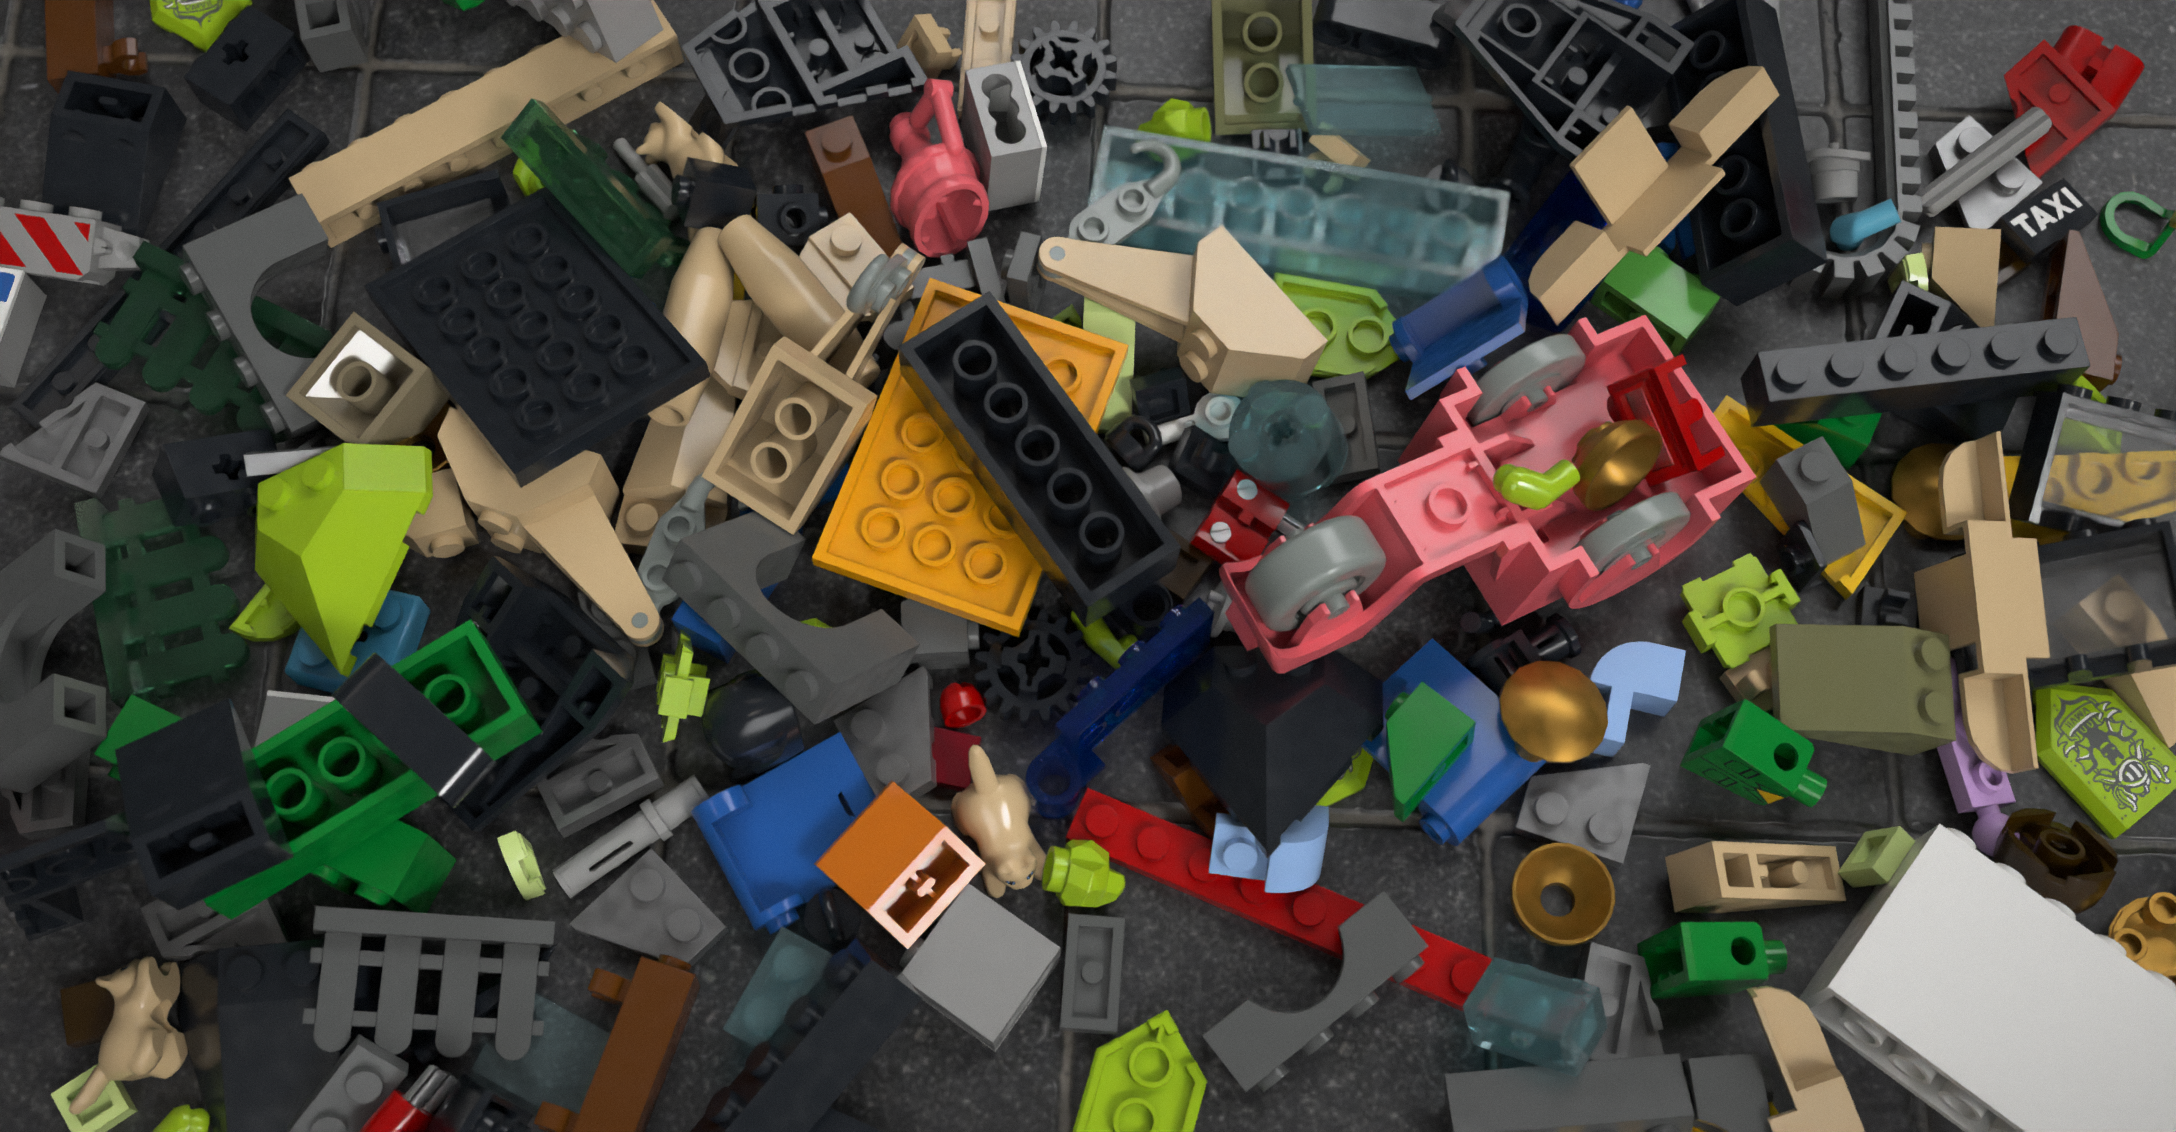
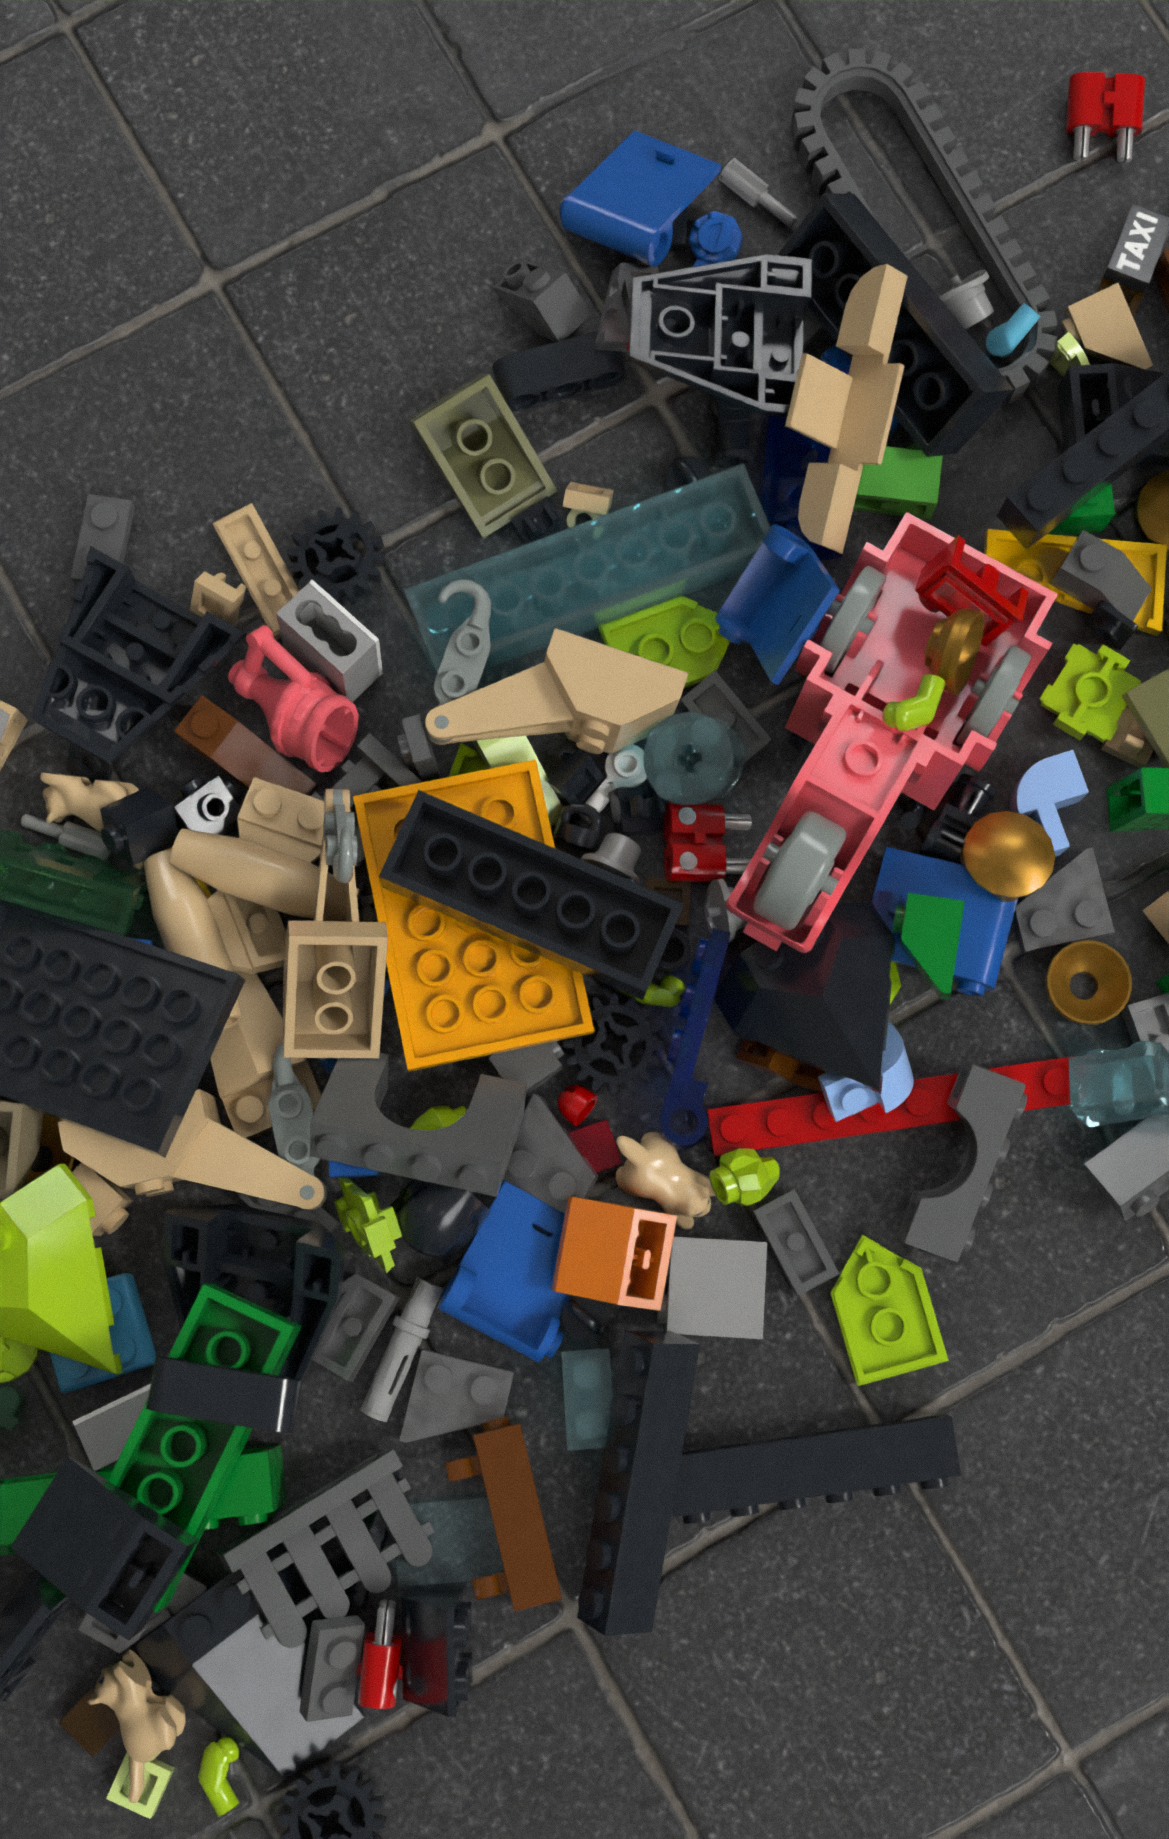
camera: 30 degrees left, 10 degrees up
(522, 864) = (336, 1420): yellowish green tile -> none
(1180, 120) = (452, 551): lime rock -> none
(1362, 100) = (582, 447): clear light blue piece -> none
(1984, 161) = (1071, 227): light grey axle -> none
(1995, 194) = (1071, 238): flat silver wing -> none
(2064, 95) = (1096, 153): red wing -> none

